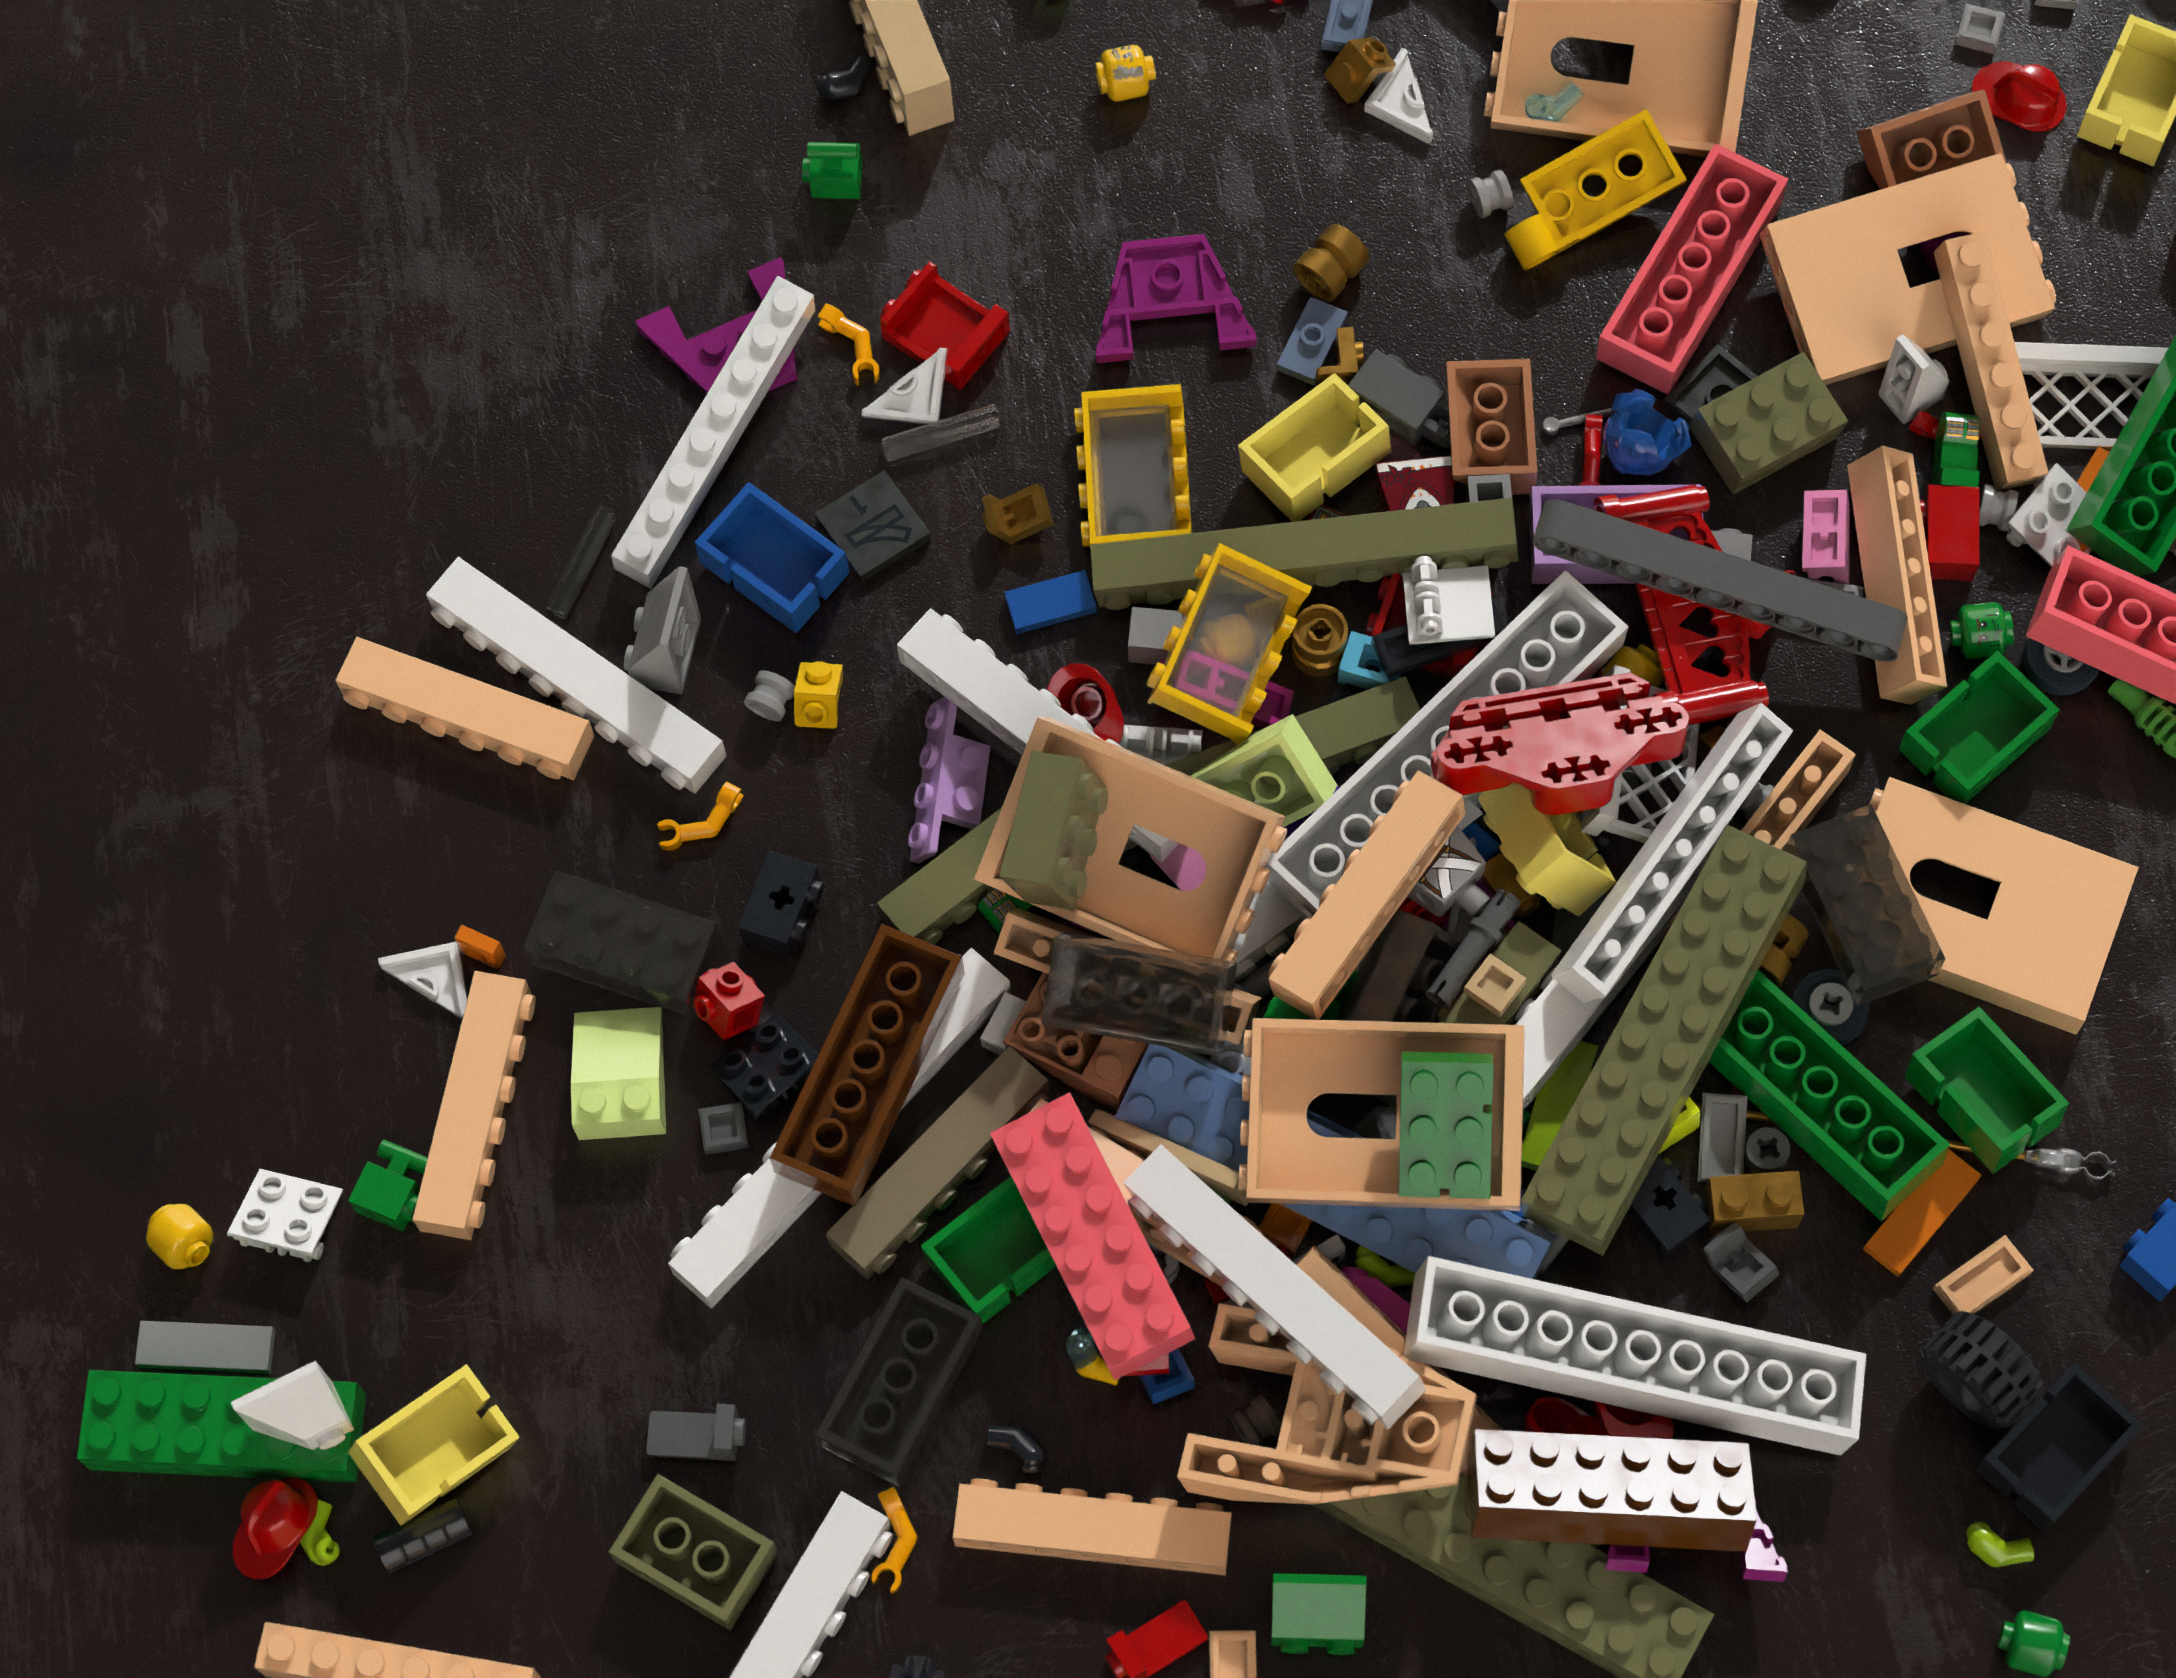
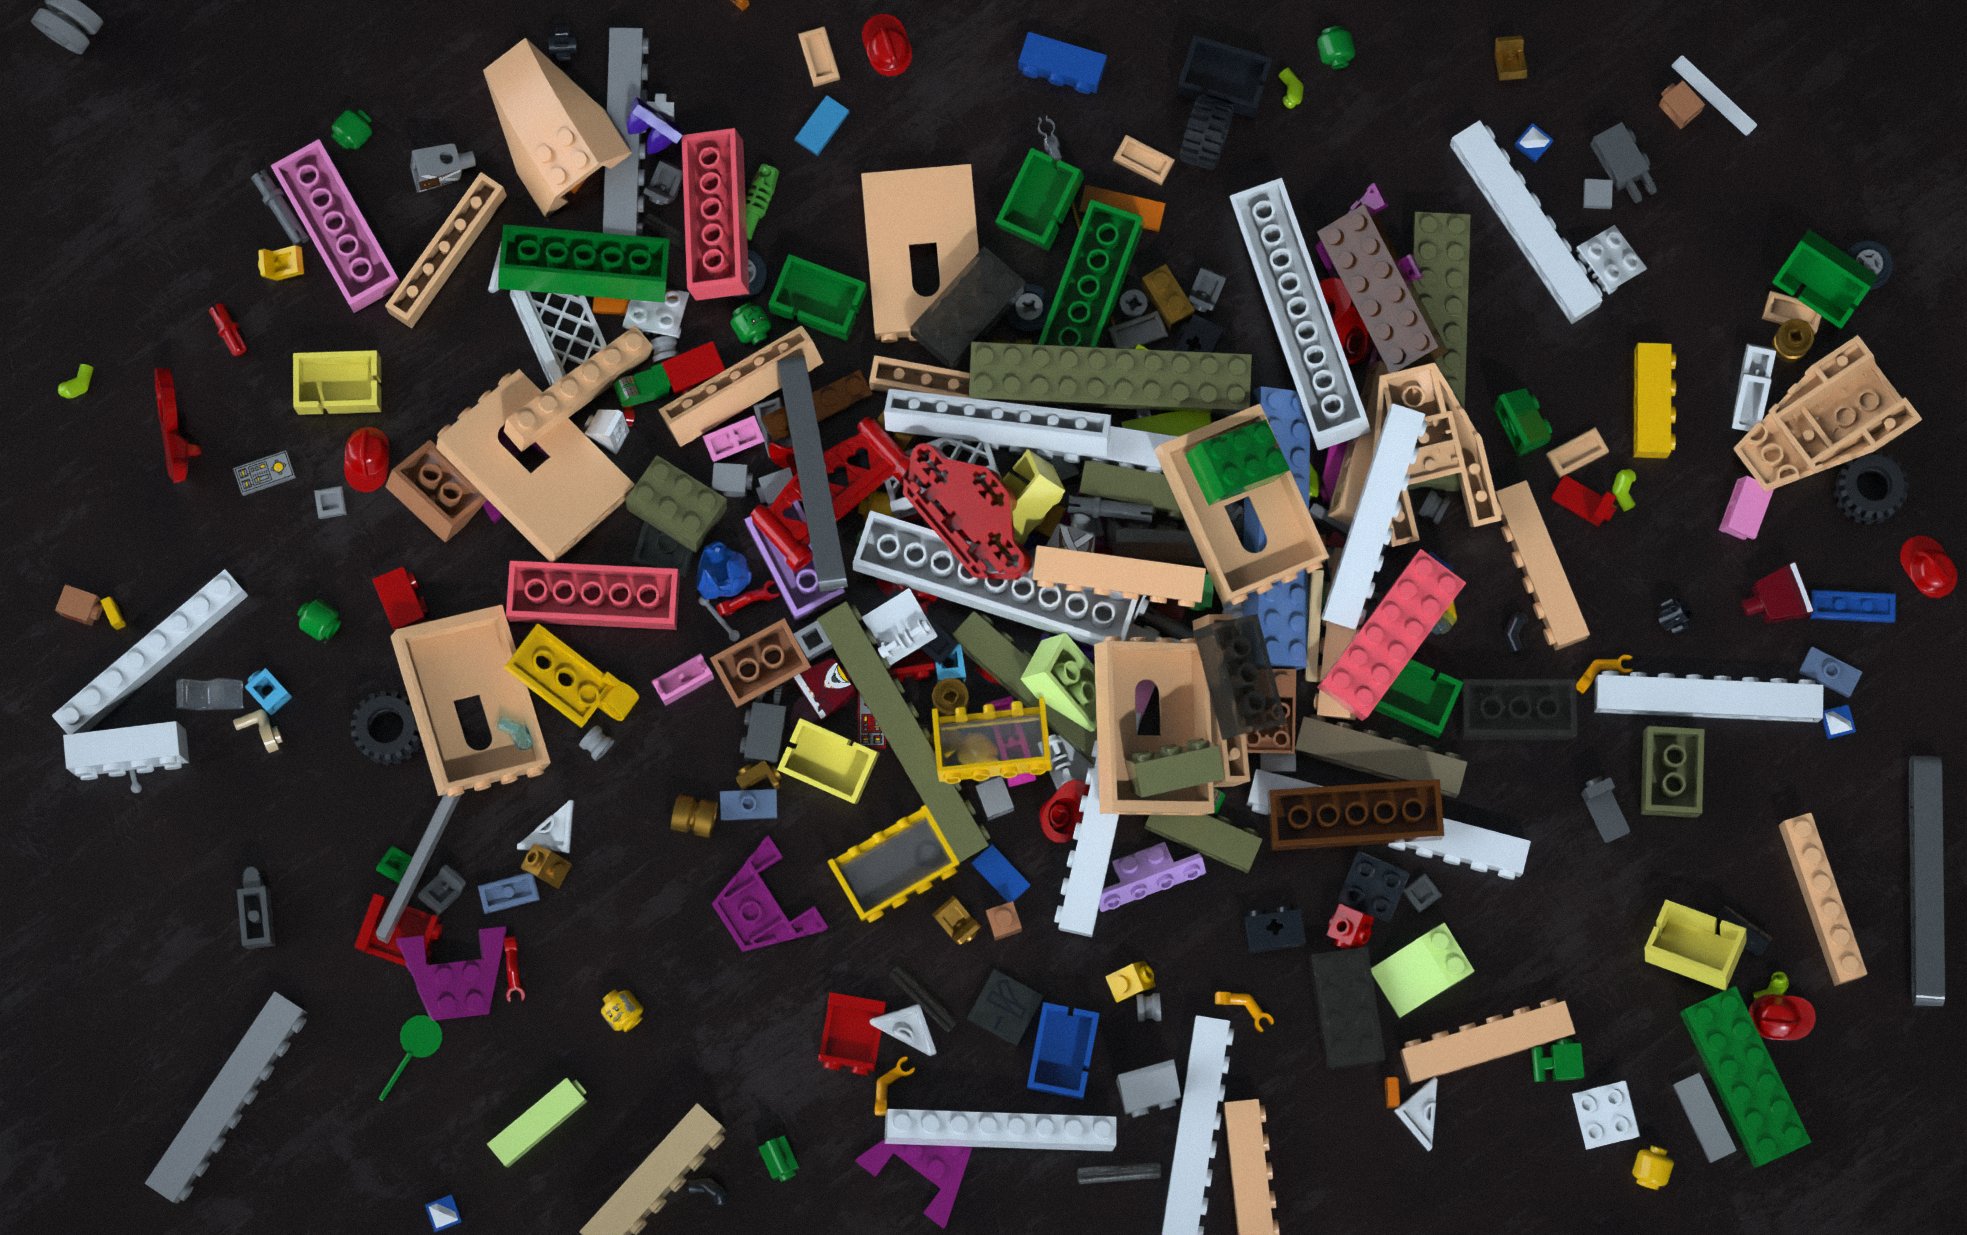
camera: 120 degrees left, 10 degrees up
(297, 1409) = (1725, 1021): white slope -> none
(984, 569) = (1003, 920): none -> nougat brick
(1495, 985) = (1129, 484): tan plate -> none
(1523, 327) = (683, 679): none -> bright pink hinge
(1769, 508) = (732, 480): none -> light grey brick
(1803, 48) = (400, 598): none -> red brick
(1822, 687) = (827, 402): none -> reddish brown plate

